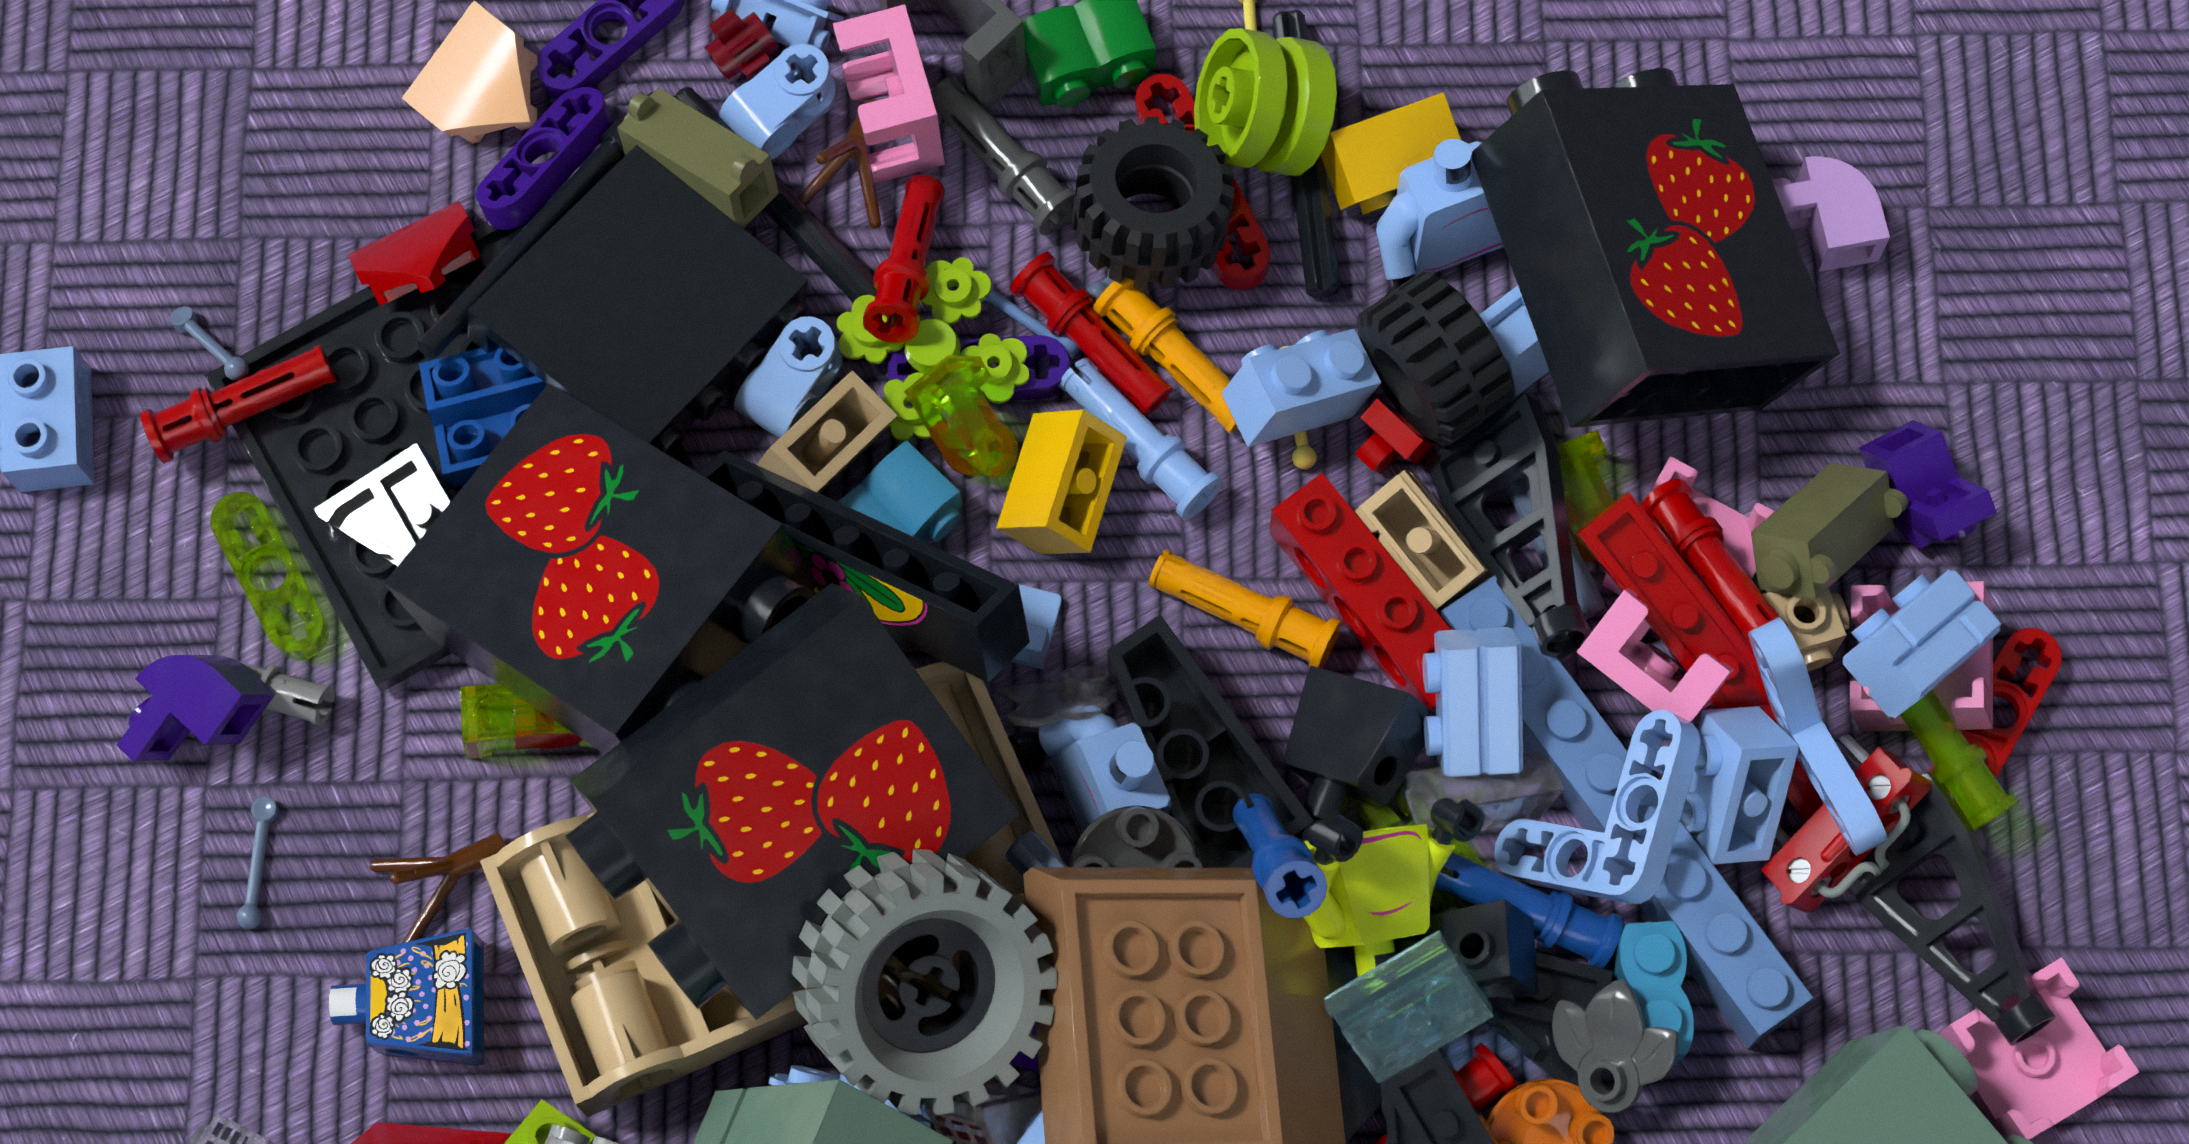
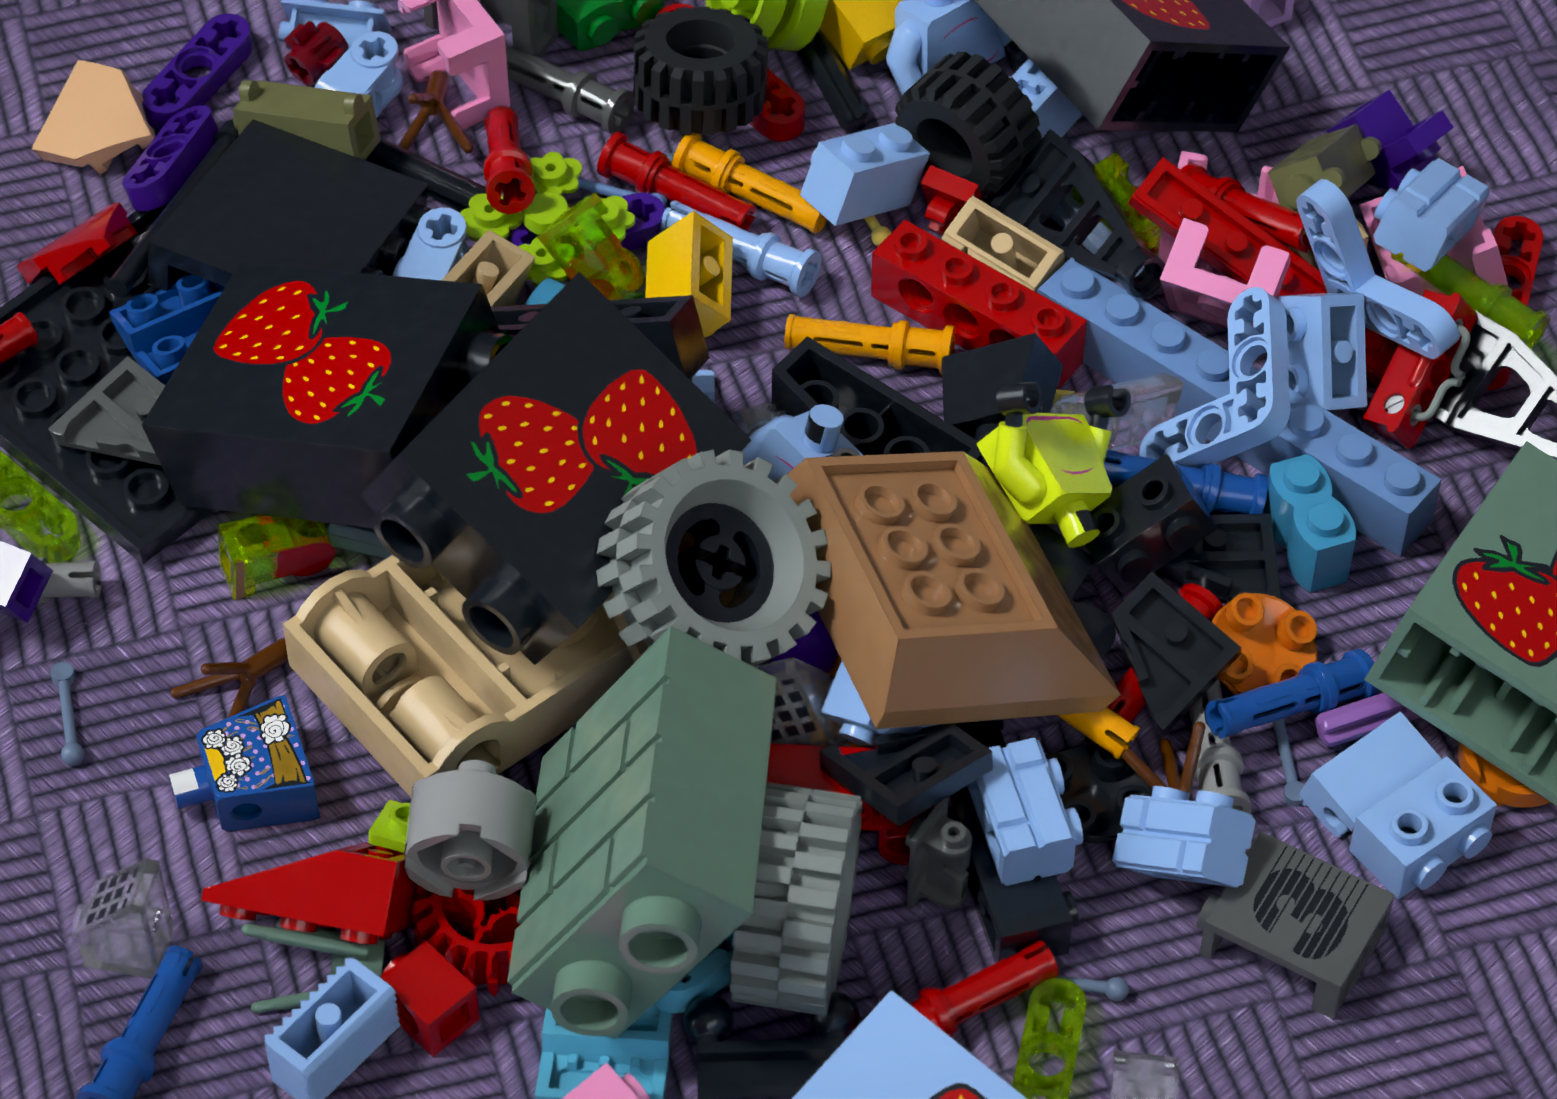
camera: 20 degrees left, 20 degrees down
(1280, 860) = (977, 436): blue pin -> none
(1408, 1006) = (1117, 542): clear light blue plate -> none
(1476, 701) = (1091, 329): light blue brick -> none
(1614, 1038) = (1291, 541): dark grey plate -> none

